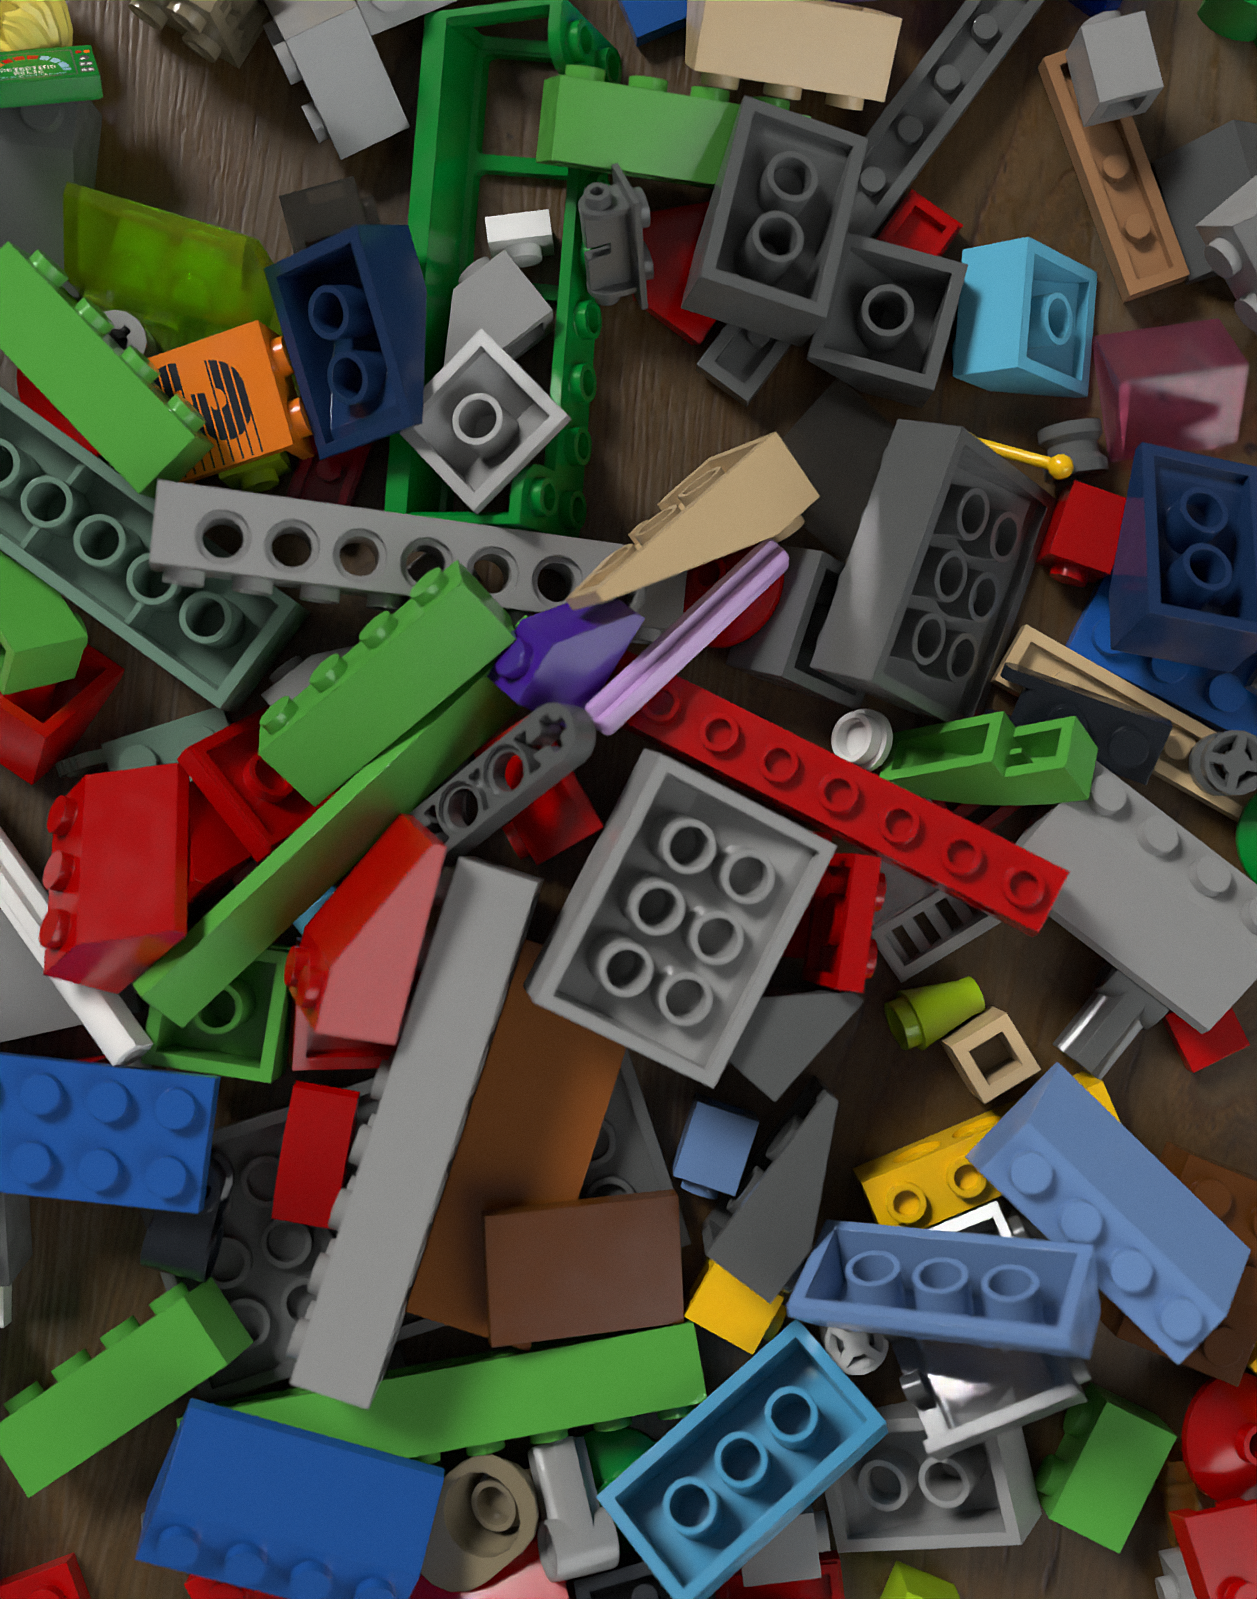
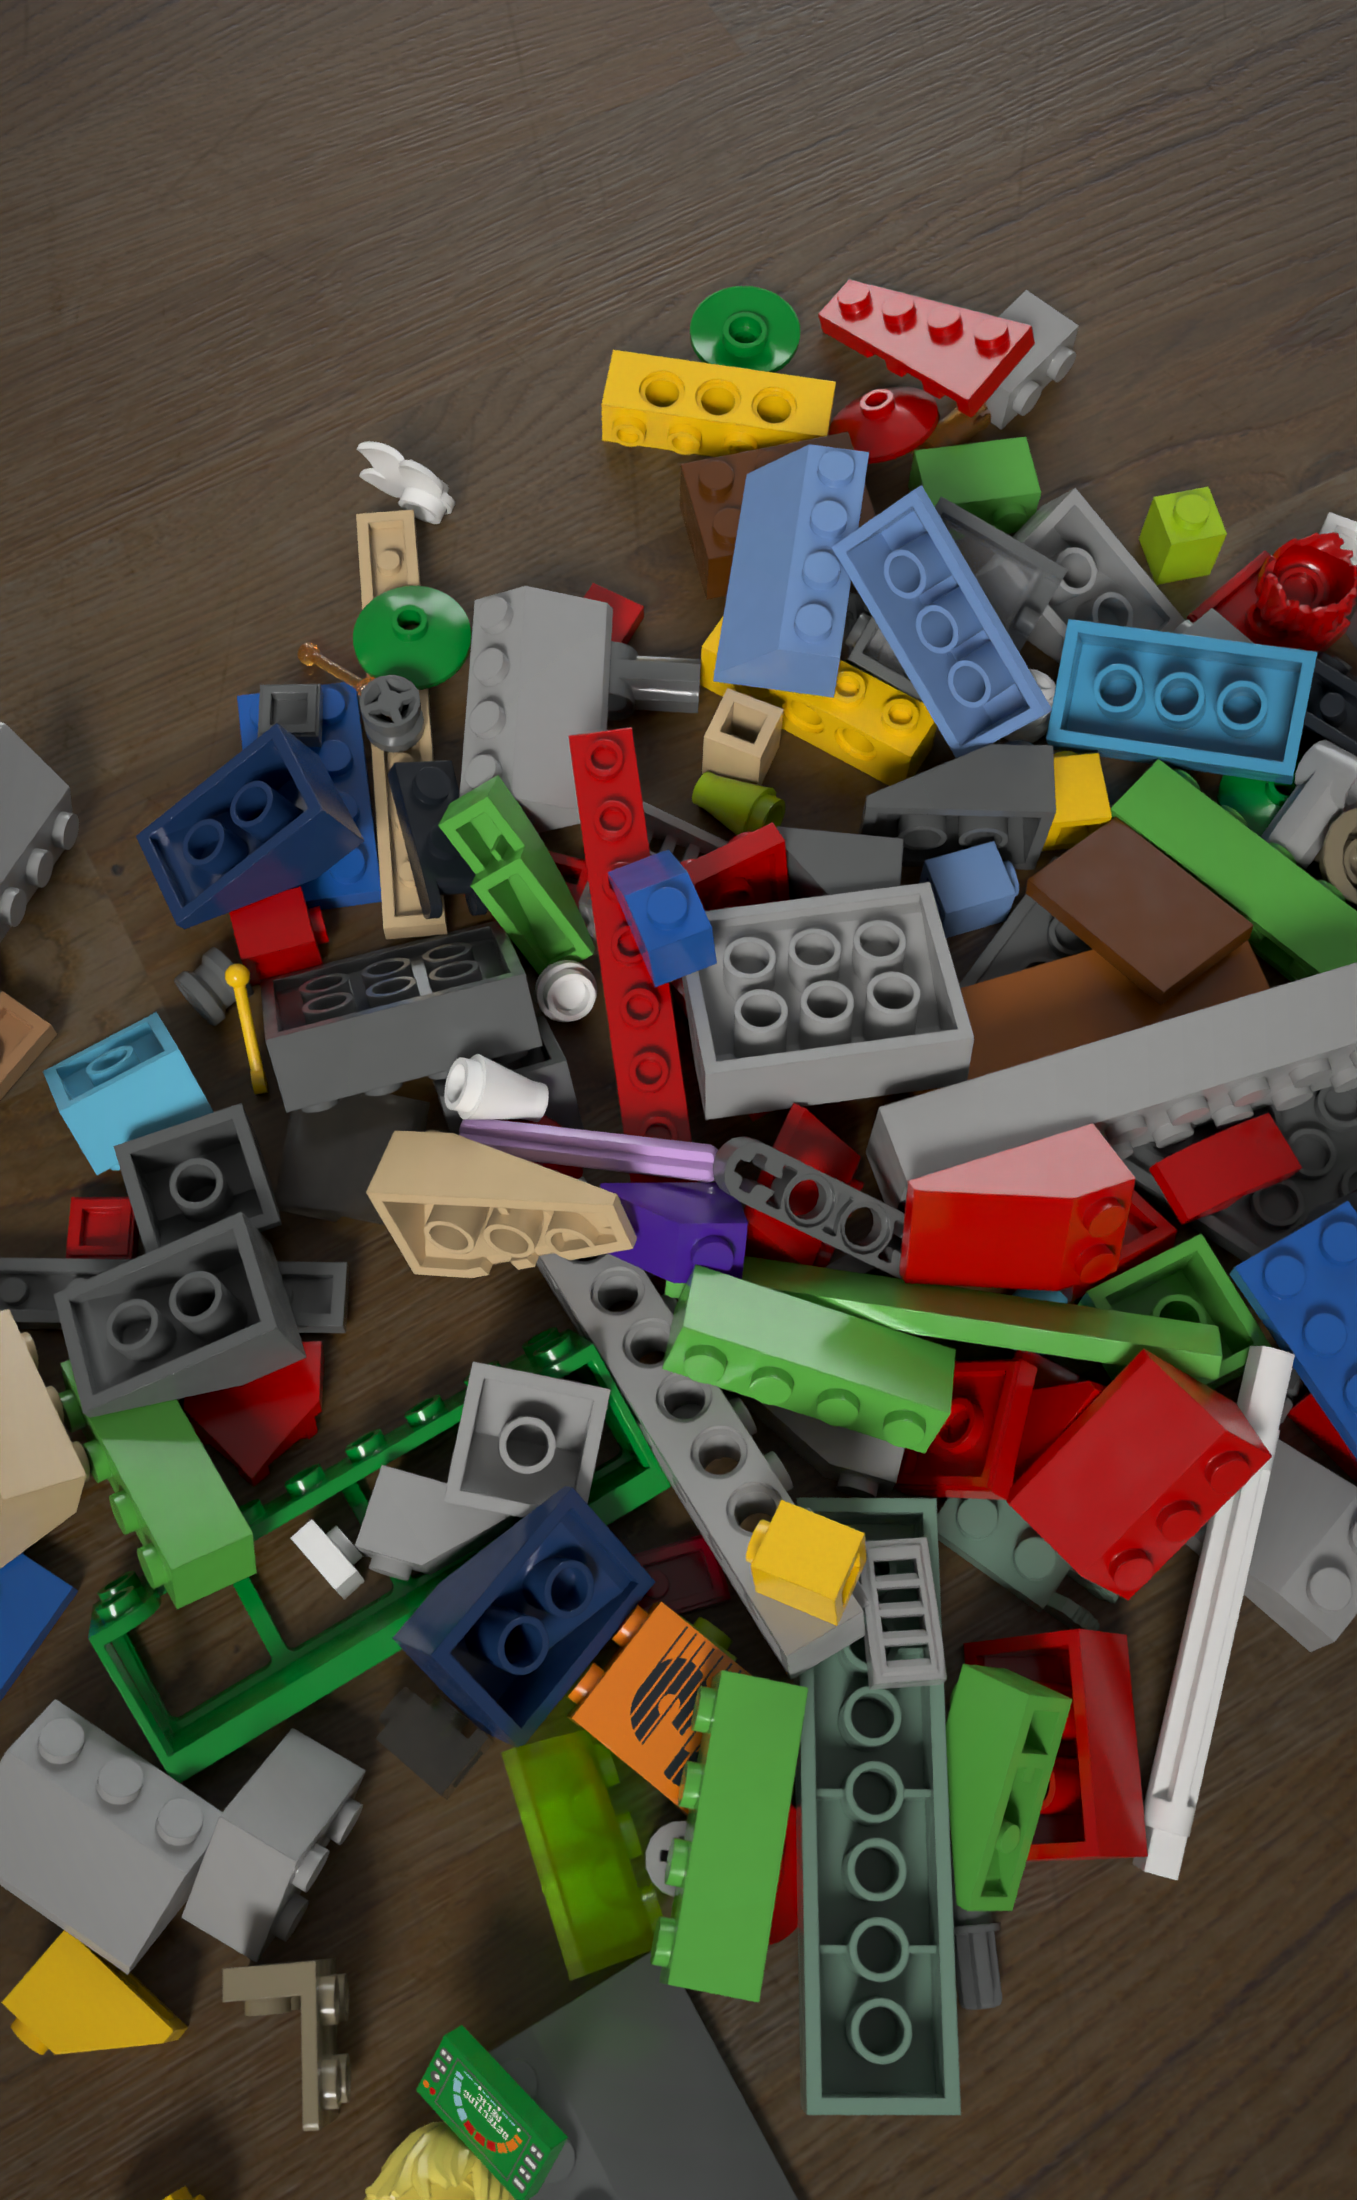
camera: 135 degrees left, 20 degrees down
(98, 582) = (910, 1672): none -> light grey slope
(209, 538) = (806, 1561): none -> yellow brick
(616, 218) = (282, 1445): dark grey hinge -> none
(791, 590) = (493, 1092): none -> white cone
(836, 824) = (665, 916): none -> blue slope
(1170, 387) = (106, 954): clear pink slope -> none

